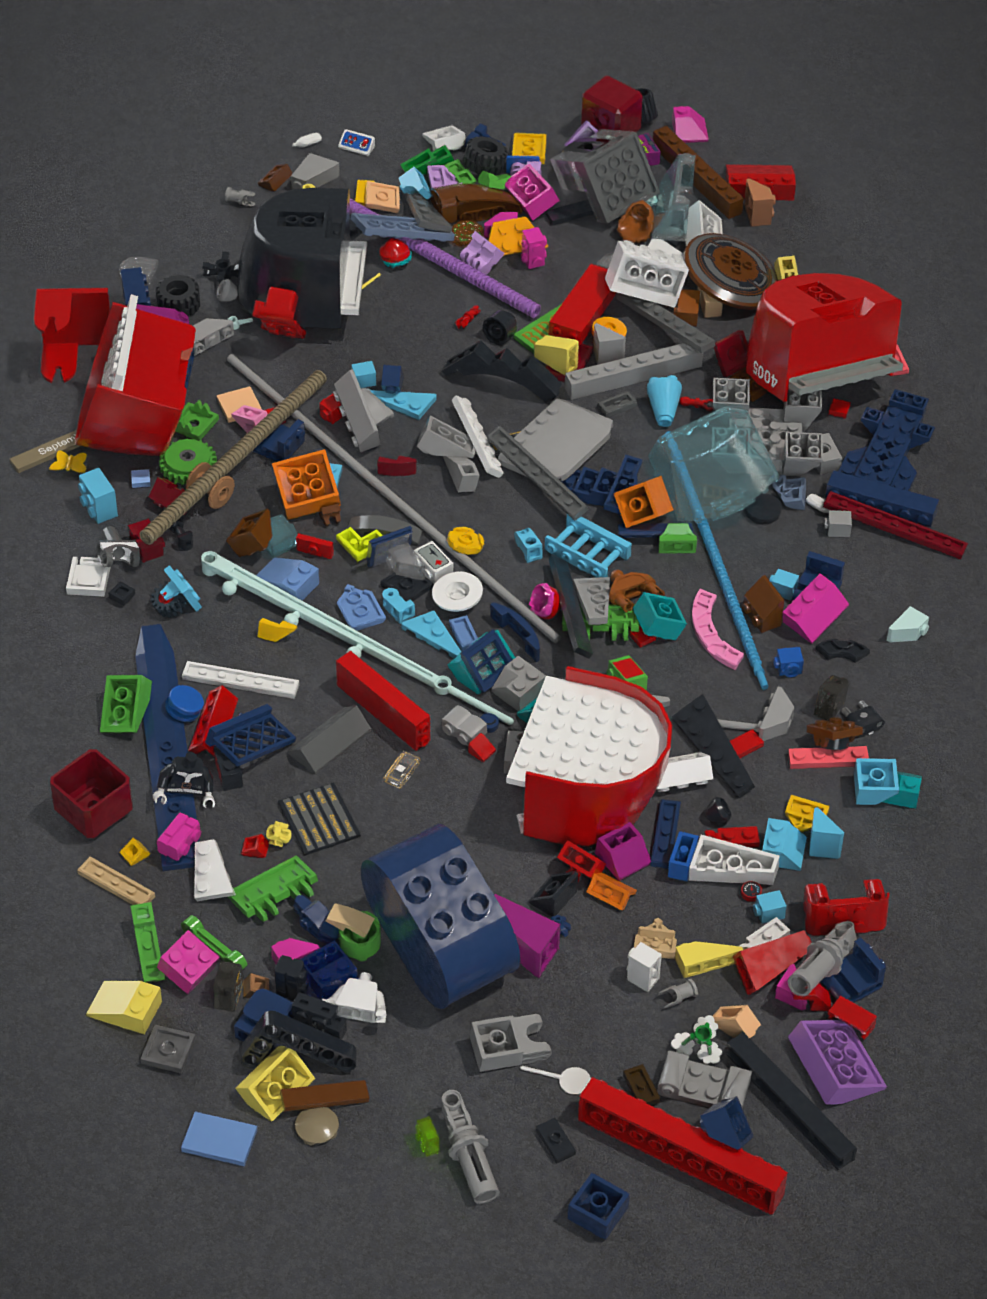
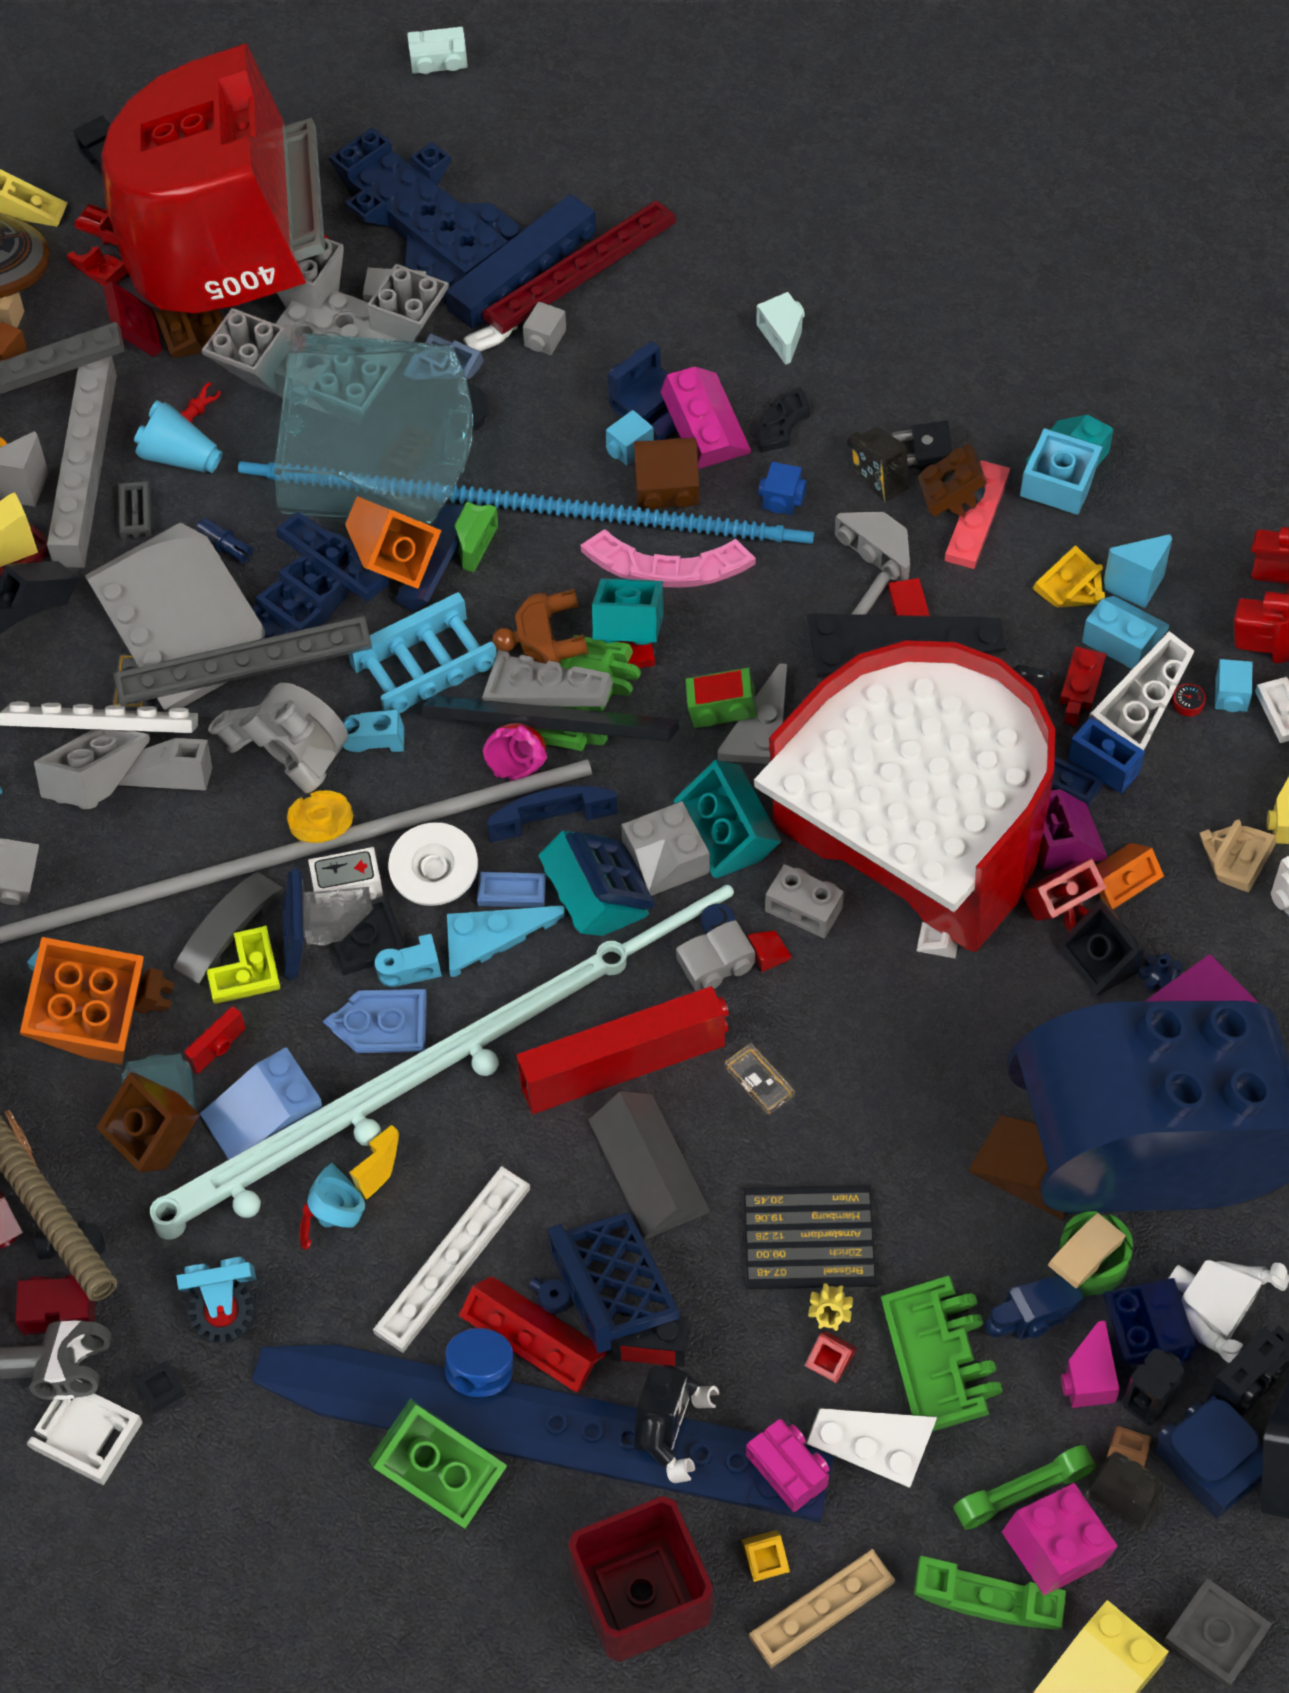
camera: 65 degrees left, 10 degrees up
(246, 620) = (332, 1201): none -> medium azure piece
(401, 467) = (105, 848): dark red slope -> none
(501, 505) = (292, 728): none -> light grey piece
(616, 444) = (224, 540): none -> dark blue axle

